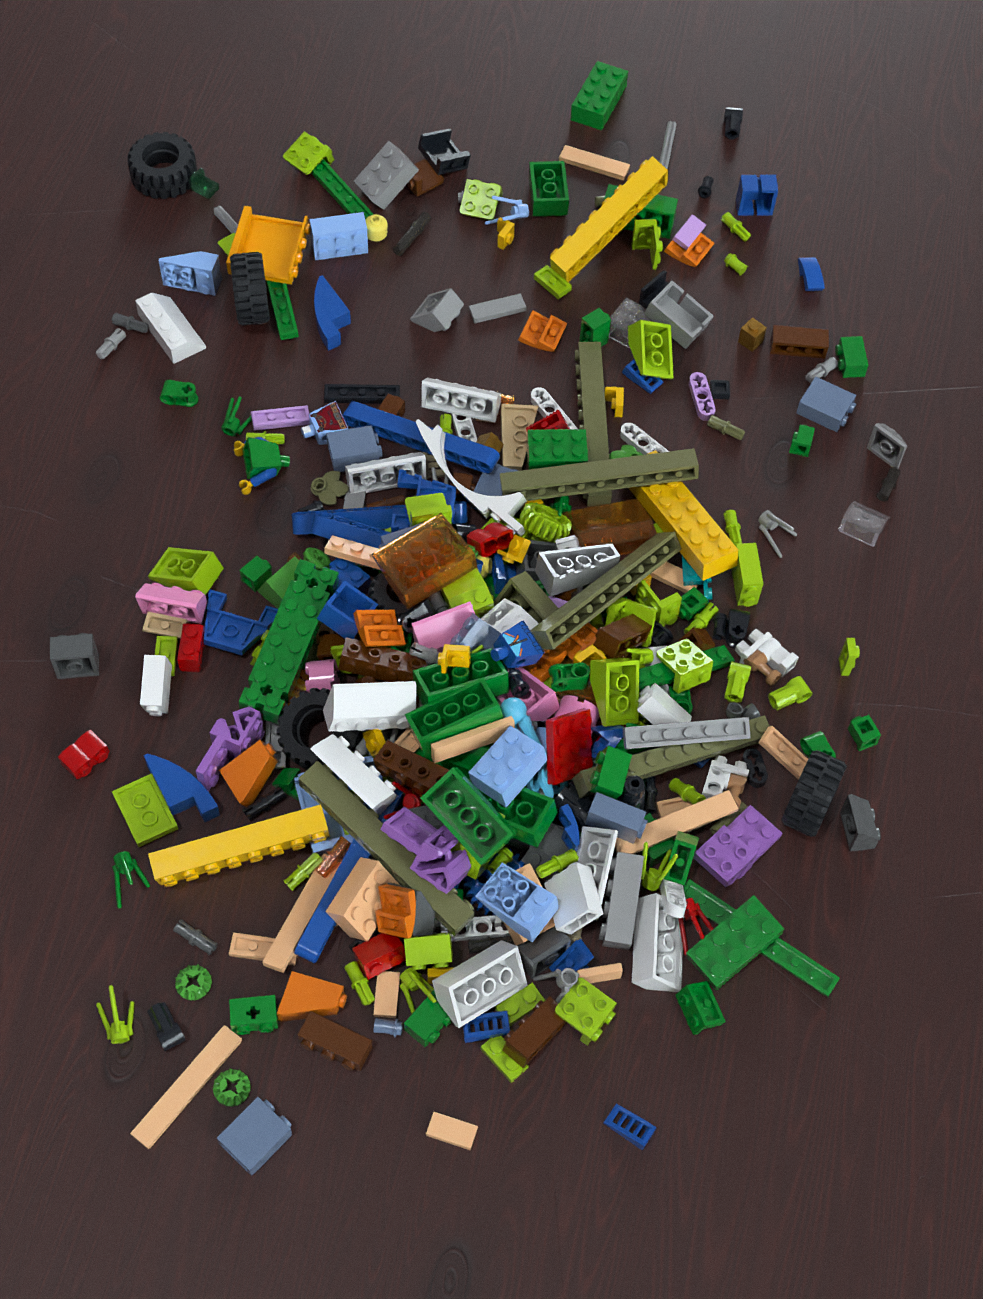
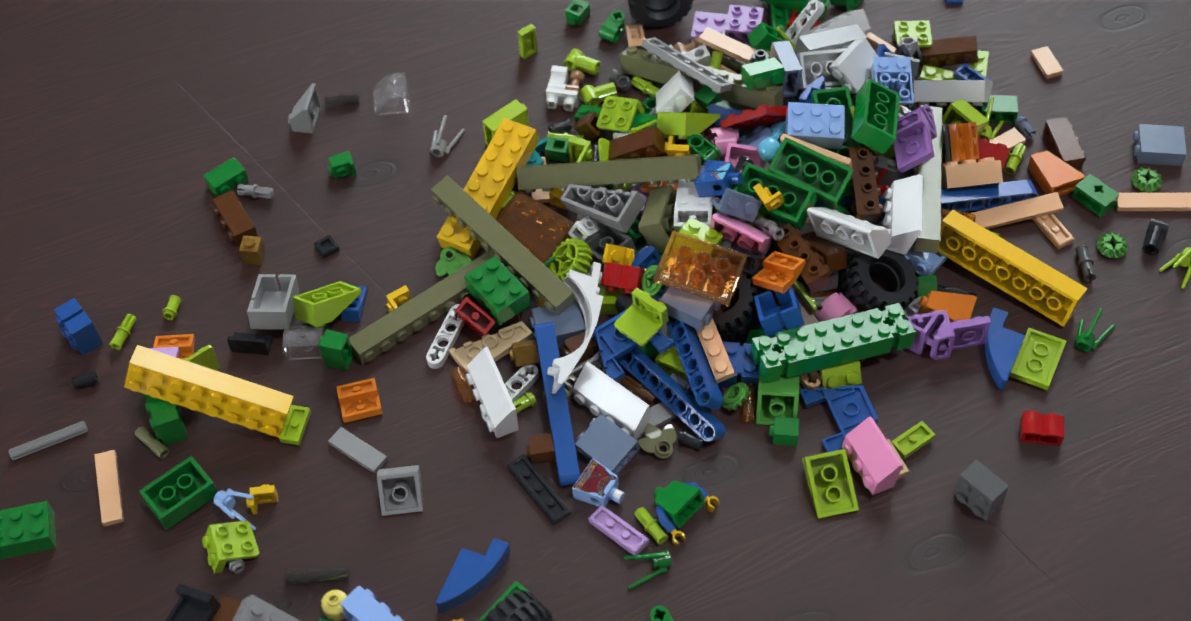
camera: 120 degrees left, 5 degrees down
(156, 684) = (948, 410): white brick -> none
(191, 648) = (895, 421): red brick -> none
(557, 863) = (853, 88): lime axle -> none
(640, 435) = (427, 256): white beam -> none
(703, 389) = (341, 260): lavender beam -> none
(725, 427) = (366, 220): olive axle -> none
(732, 526) = (464, 164): lime axle -> none
(737, 627) = (551, 114): black piece -> none
(812, 274) = (143, 251): blue slope -> none
(826, 404) = (291, 170): sand blue brick -> none

